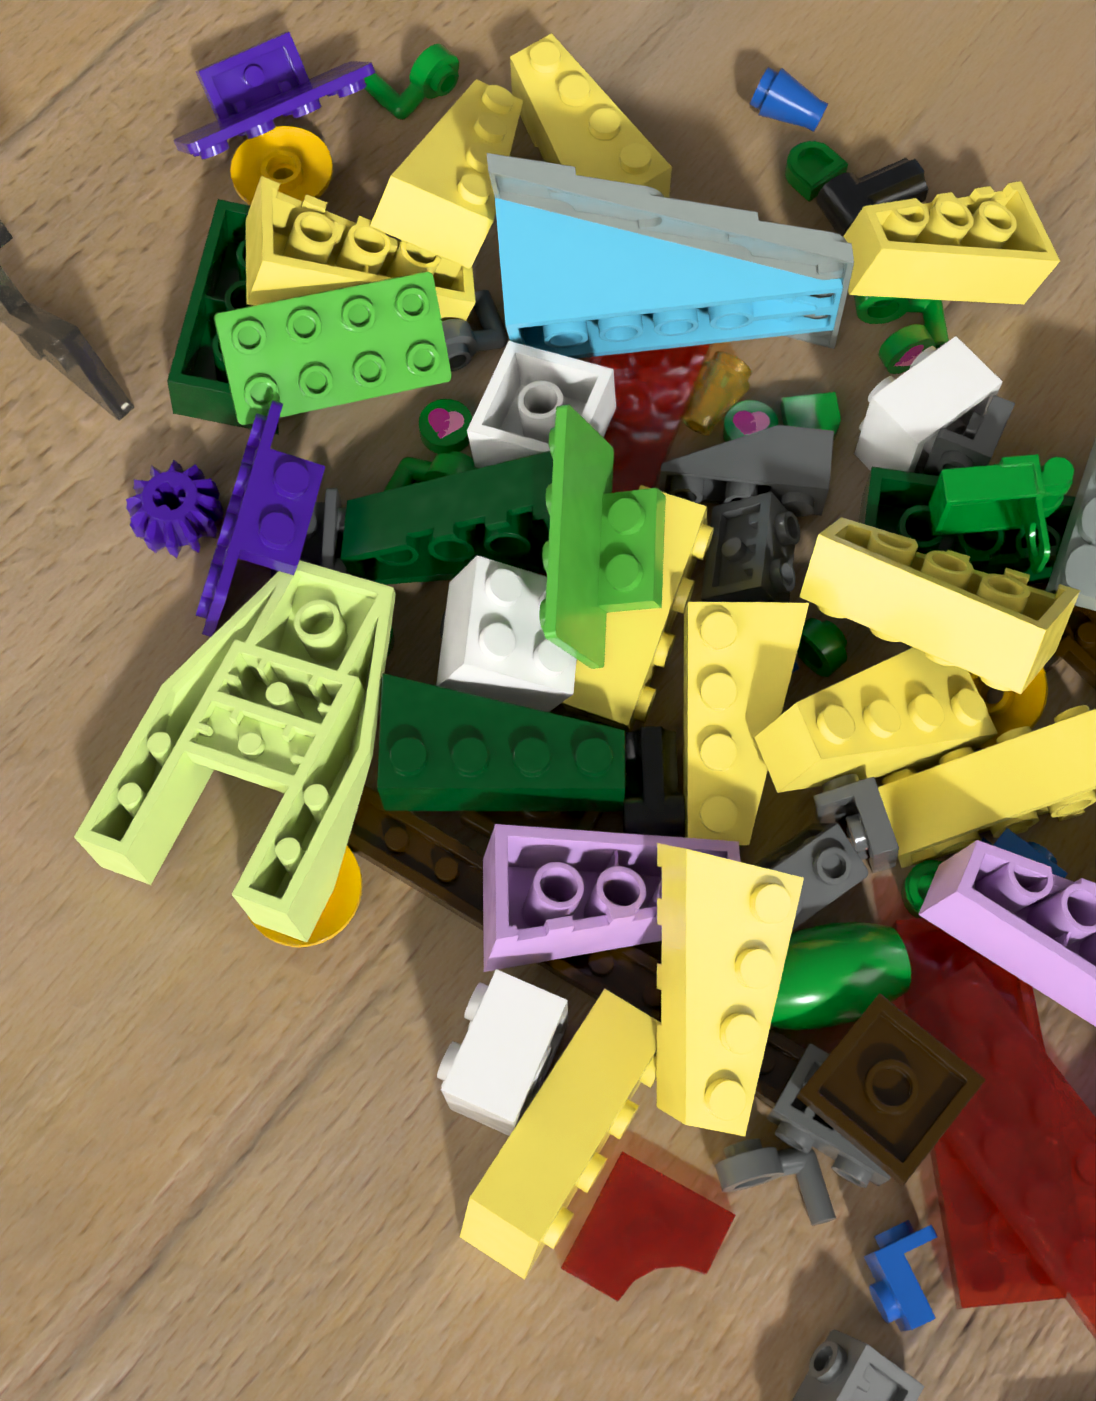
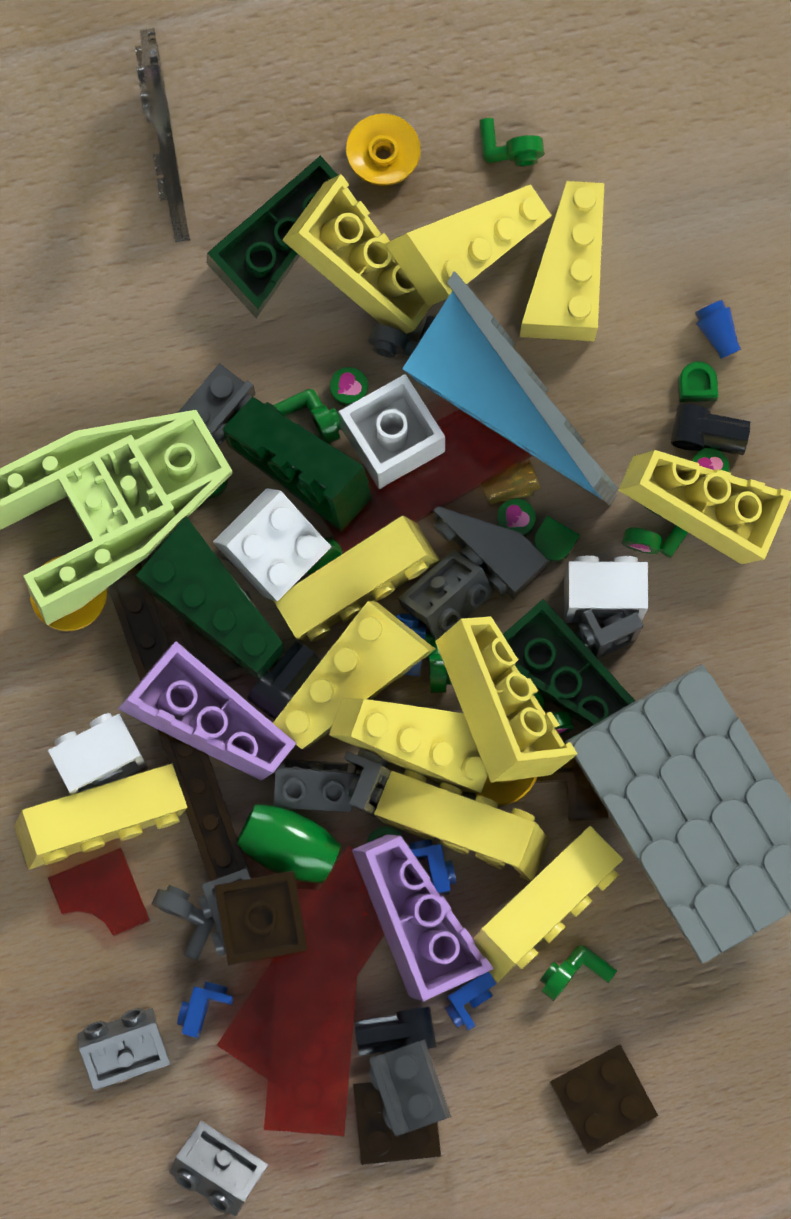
camera: 35 degrees right, 10 degrees up
(175, 509) = (150, 316): dark purple gear -> none
(262, 85) = (410, 91): dark purple bracket -> none
(264, 515) = (201, 377): dark purple bracket -> none
(334, 346) = (310, 303): bracket -> none
(601, 543) = (347, 531): bright green bracket -> none
(718, 982) = (224, 800): light yellow wedge -> none
(1002, 498) = (583, 672): green piece -> none

